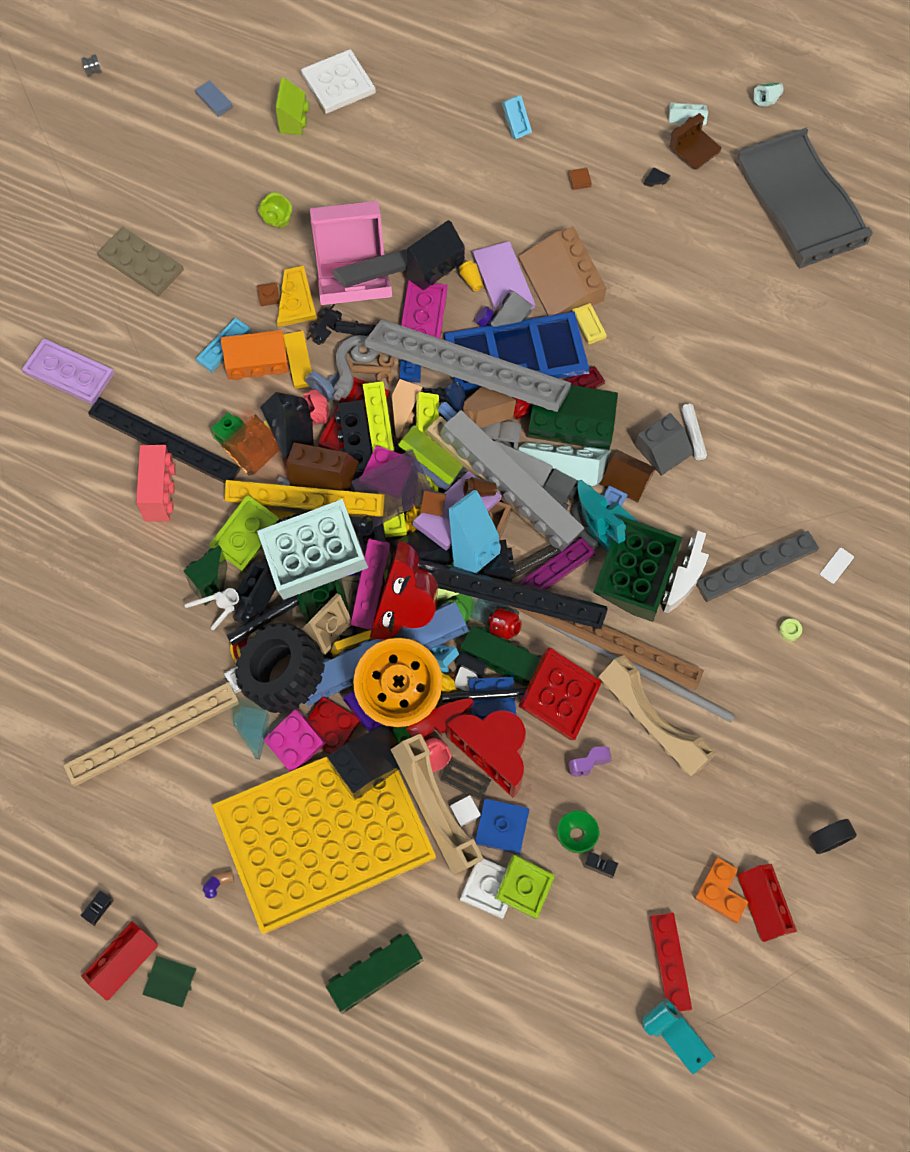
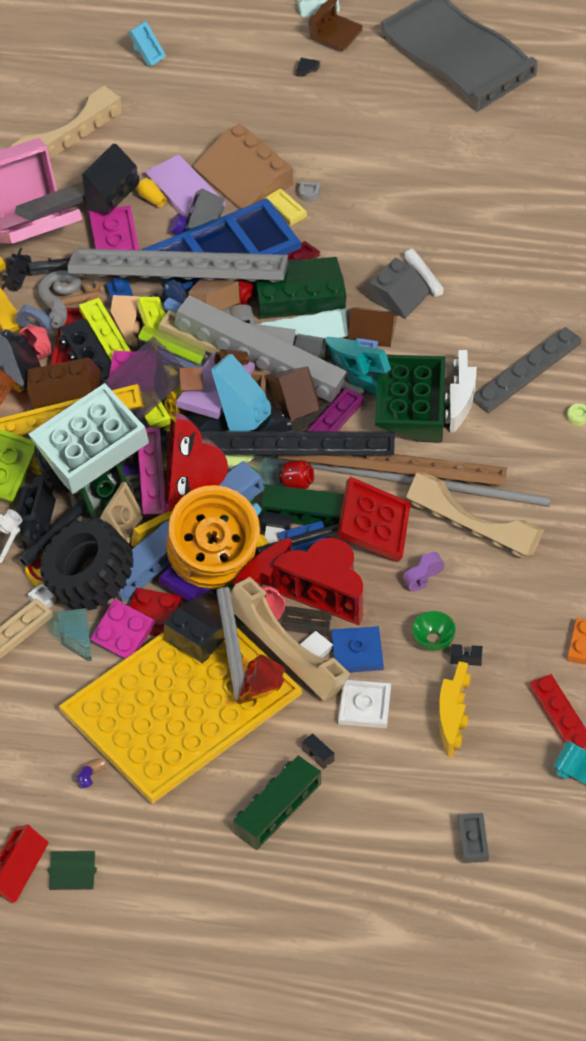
camera: 15 degrees left, 15 degrees down
(383, 797) = (231, 639): none -> light grey axle
(397, 844) = (260, 679): none -> clear red slope
(431, 927) = (323, 754): none -> black piece
(454, 173) = (100, 108): none -> tan arch
(524, 887) = (398, 691): lime tile -> none
(528, 536) = (293, 392): none -> reddish brown slope
(543, 1072) = (473, 838): none -> dark grey plate
(564, 930) = (452, 709): none -> yellow slope
(580, 178) = (230, 85): dark orange tile -> none
(616, 312) = (309, 191): none -> light grey tile

